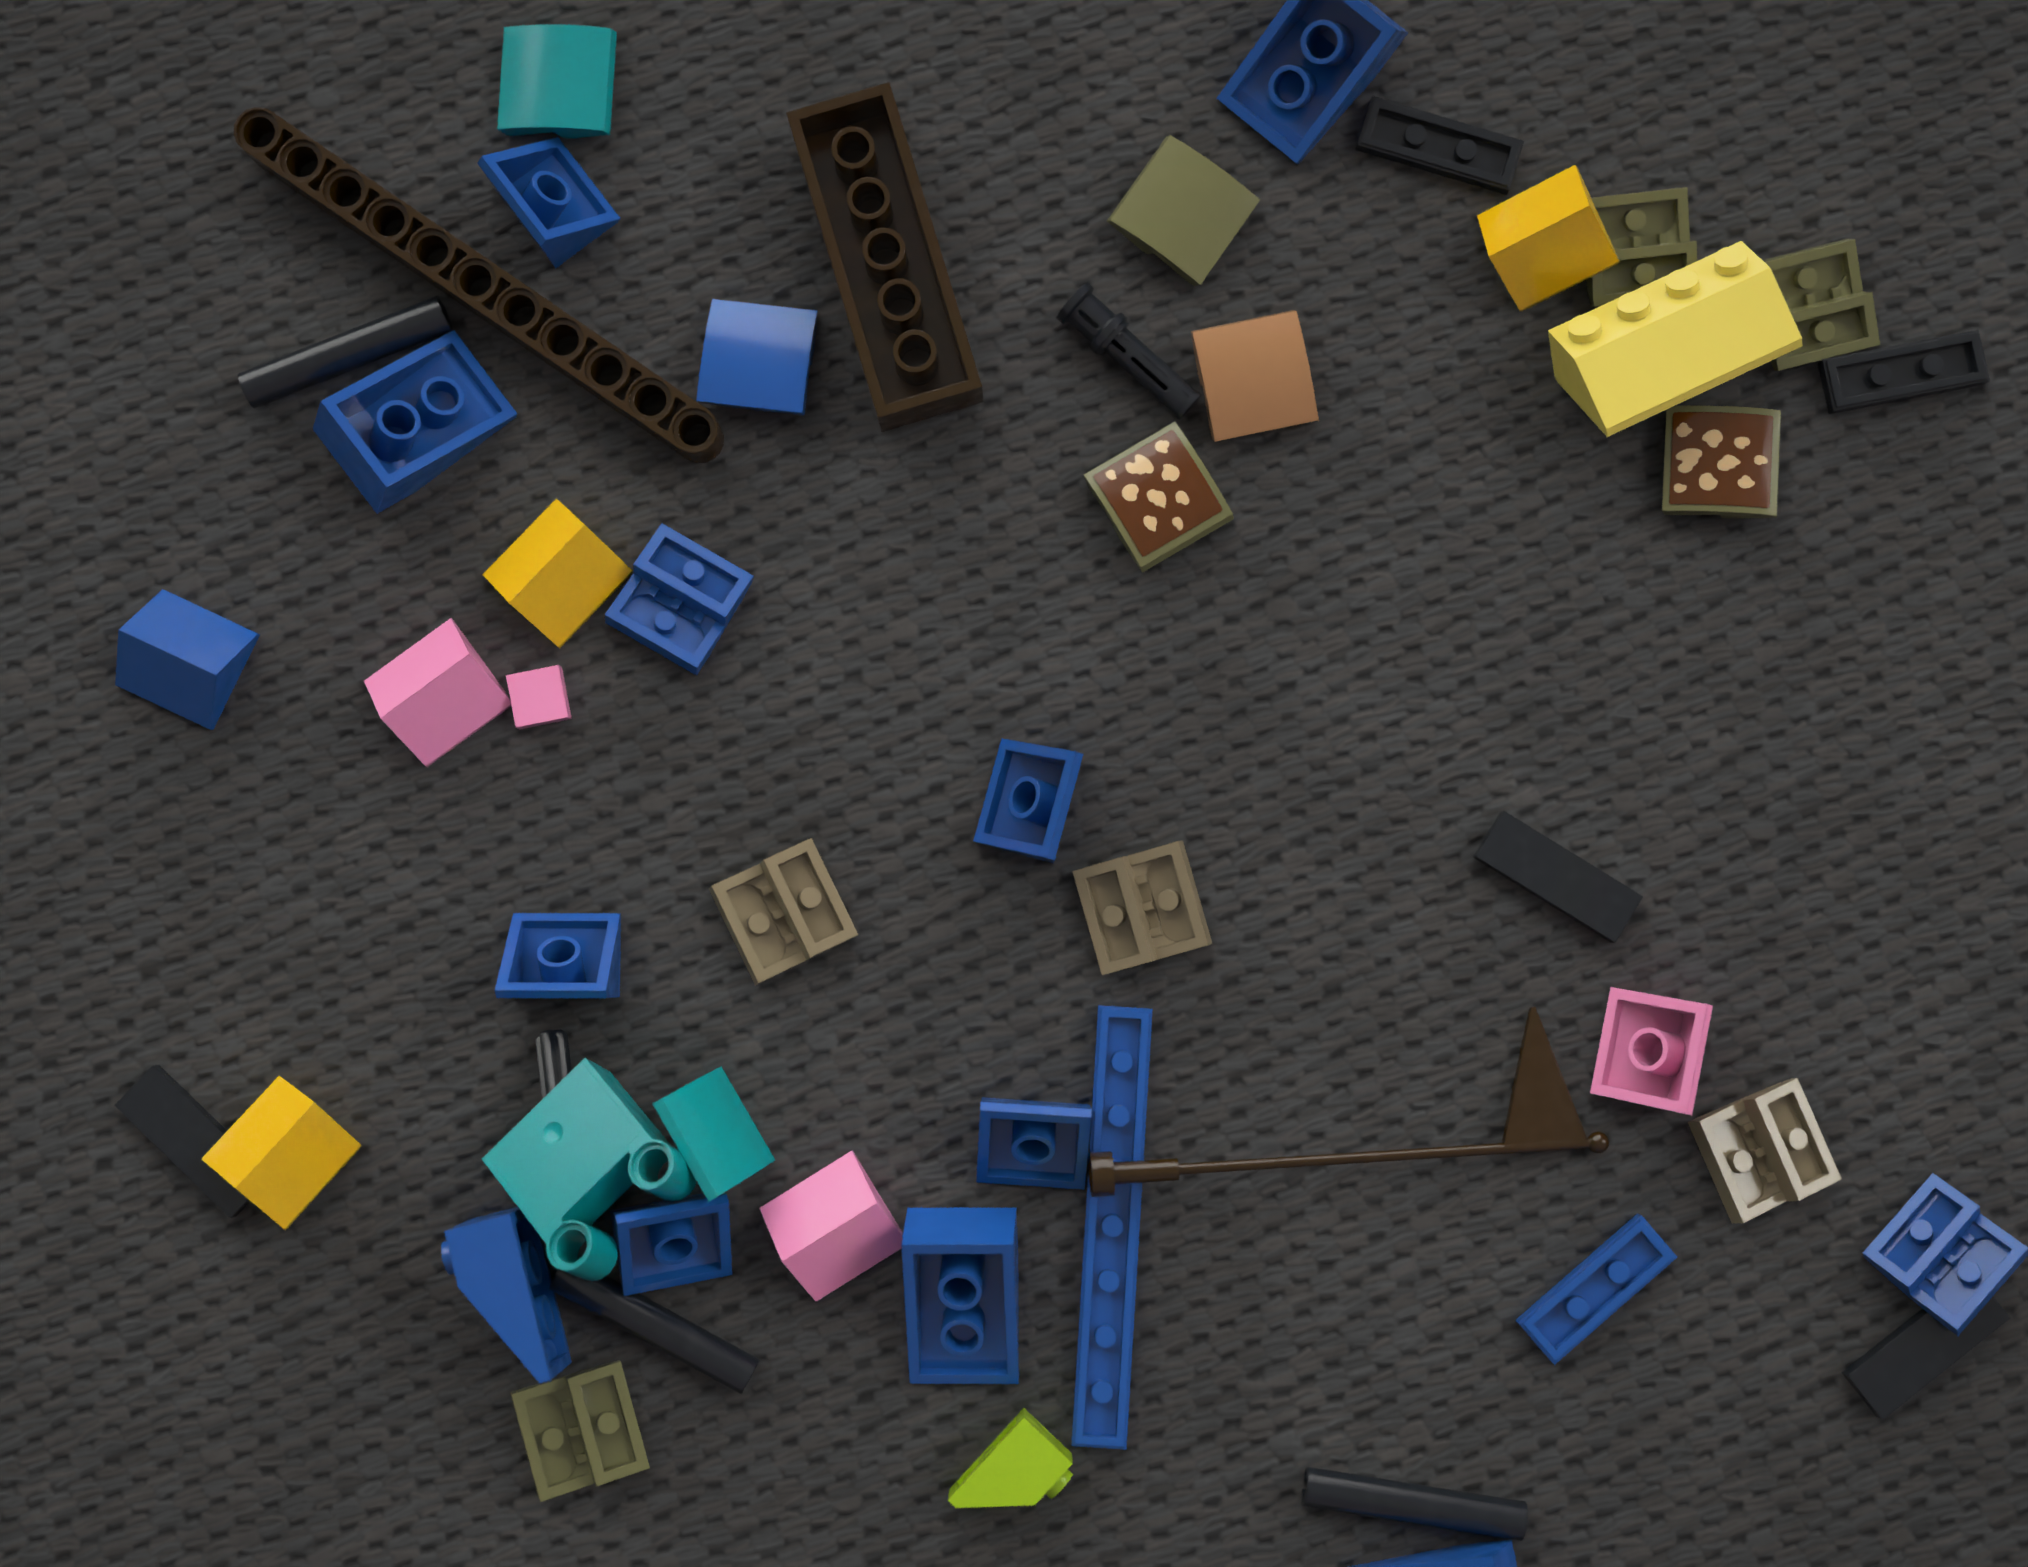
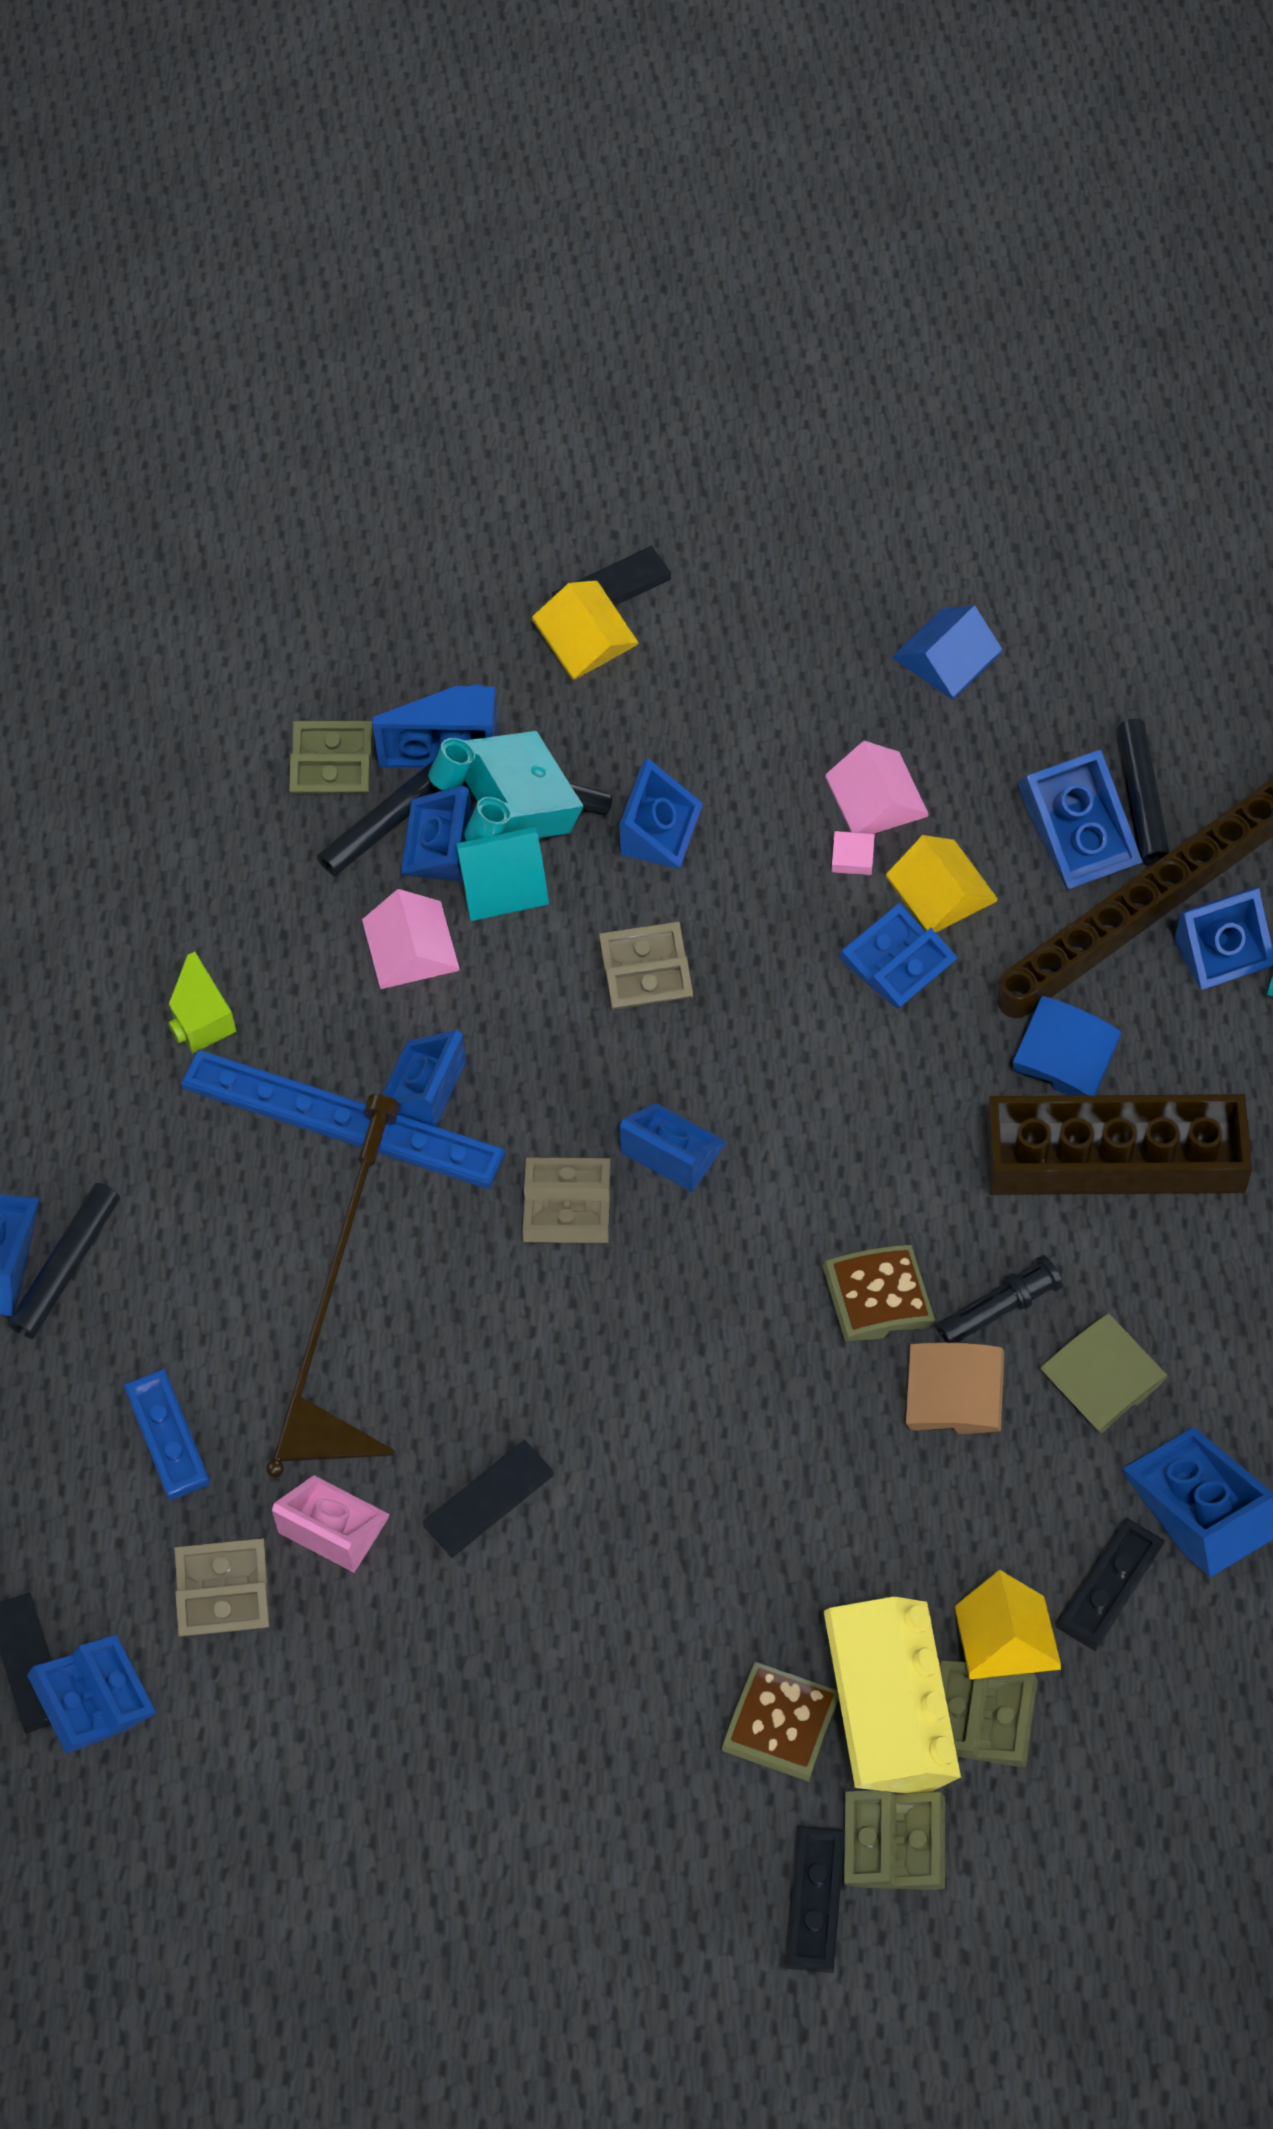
camera: 105 degrees right, 25 degrees down
(961, 1295) = (333, 1005): blue slope -> none

